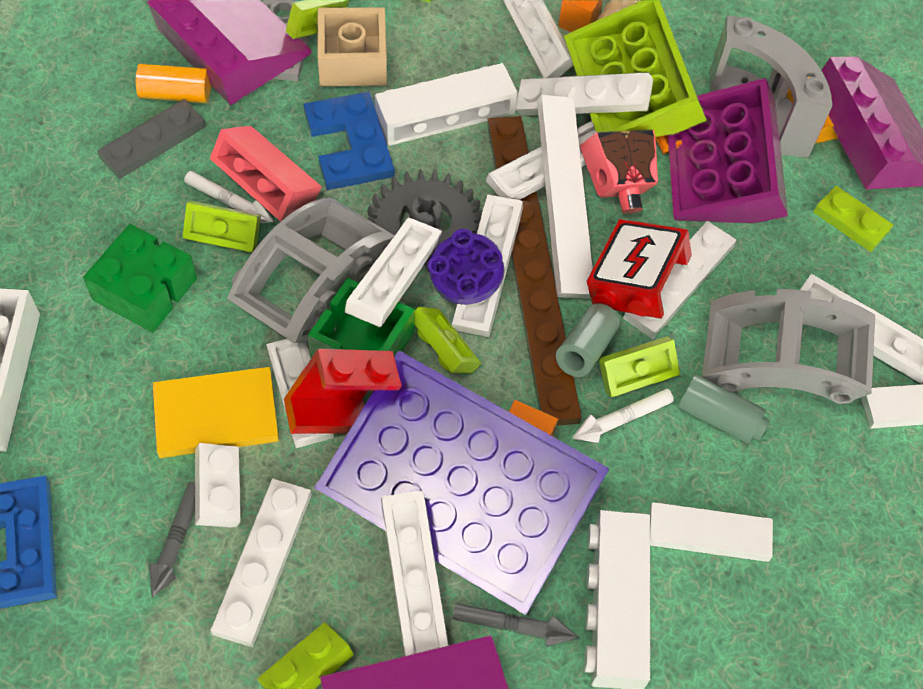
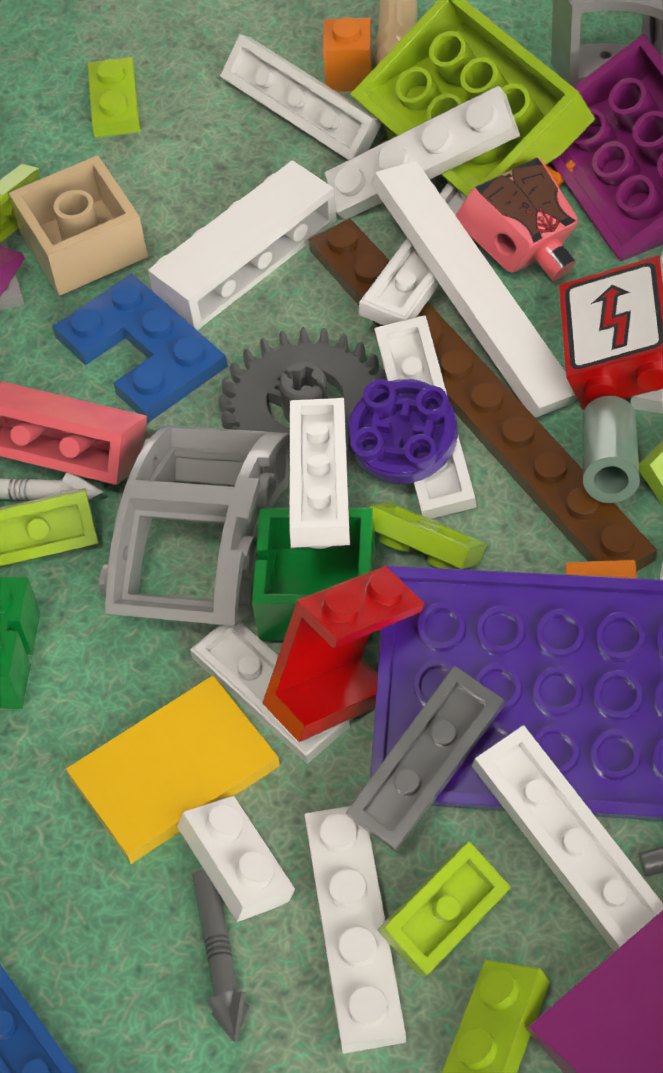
camera: 15 degrees left, 5 degrees down
(318, 578) = (444, 909): none -> lime plate
(355, 481) = (425, 758): none -> dark grey plate

